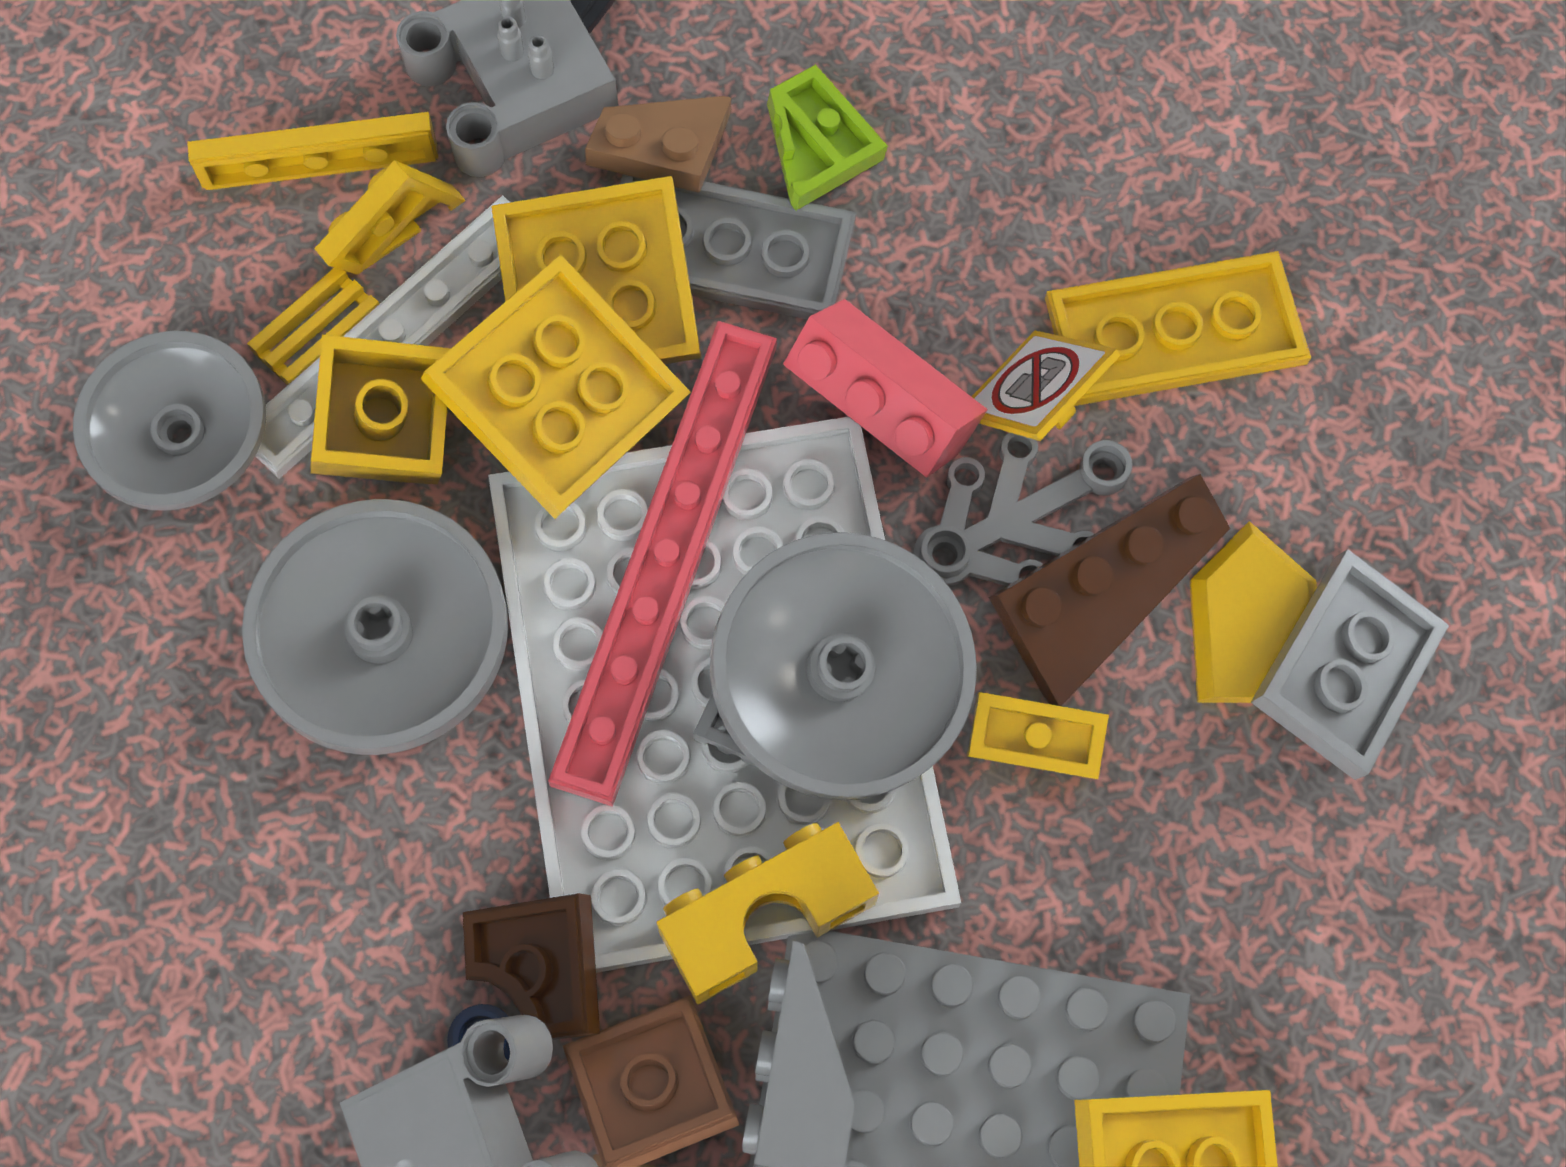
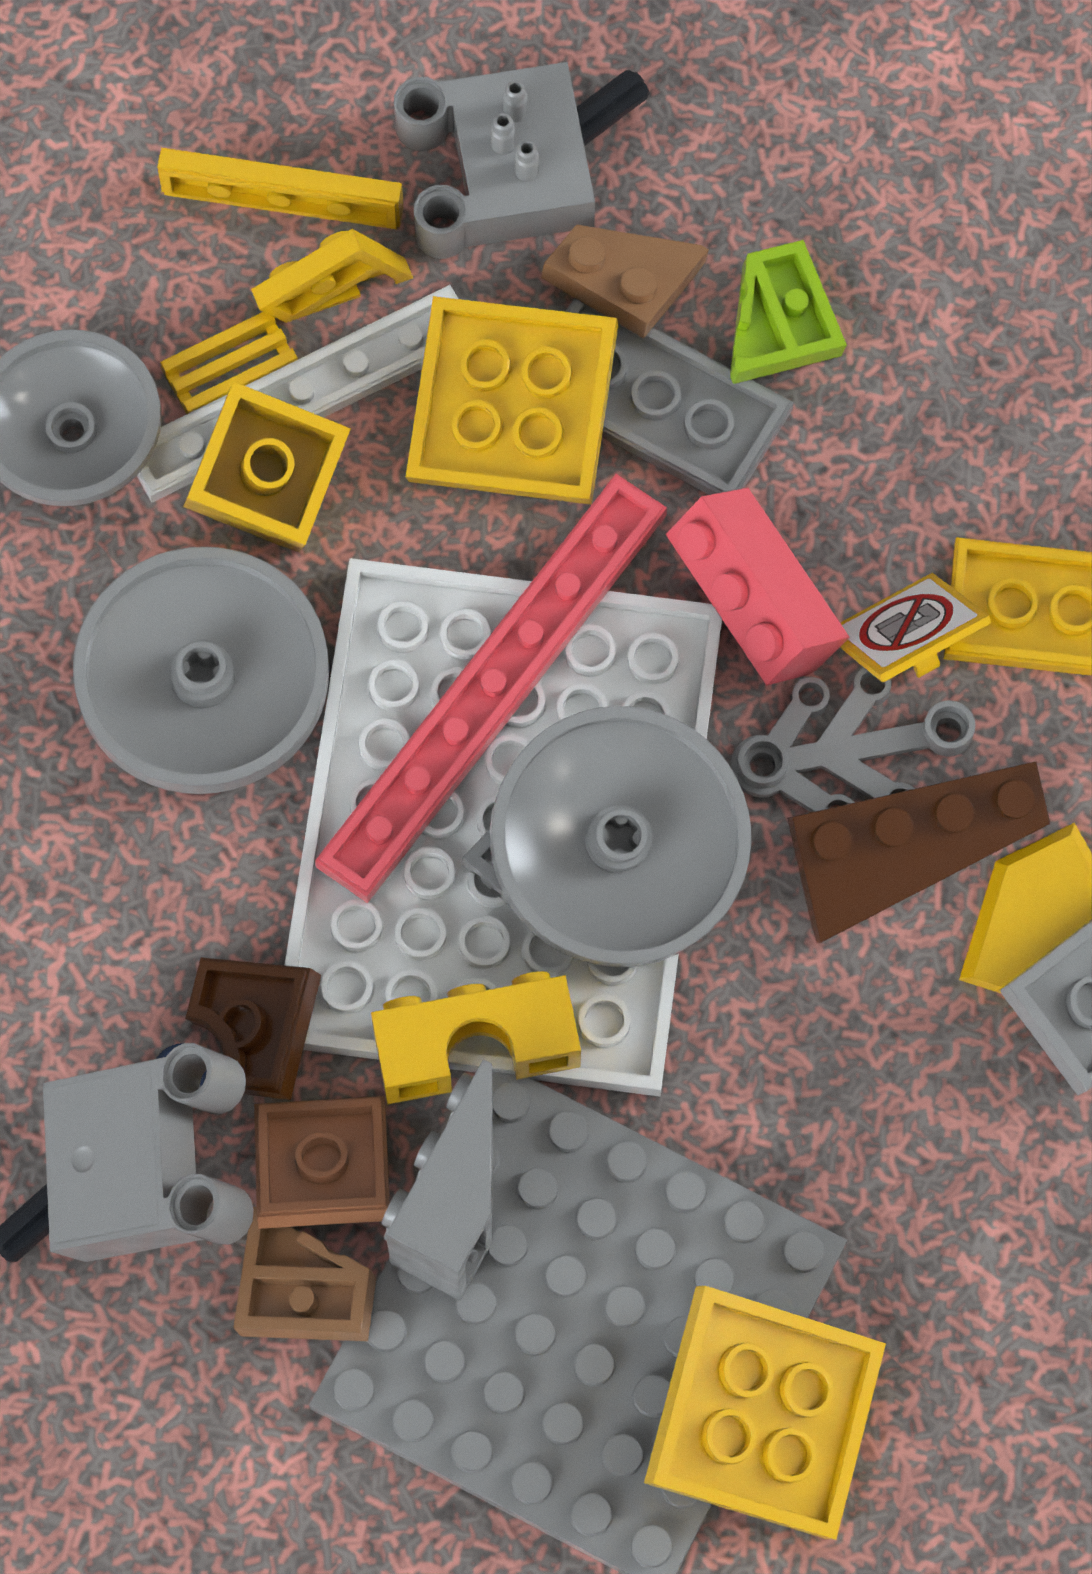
camera: 20 degrees right, 0 degrees up
(555, 386) = (439, 493): yellow plate -> none
(1038, 735) = (788, 961): yellow plate -> none

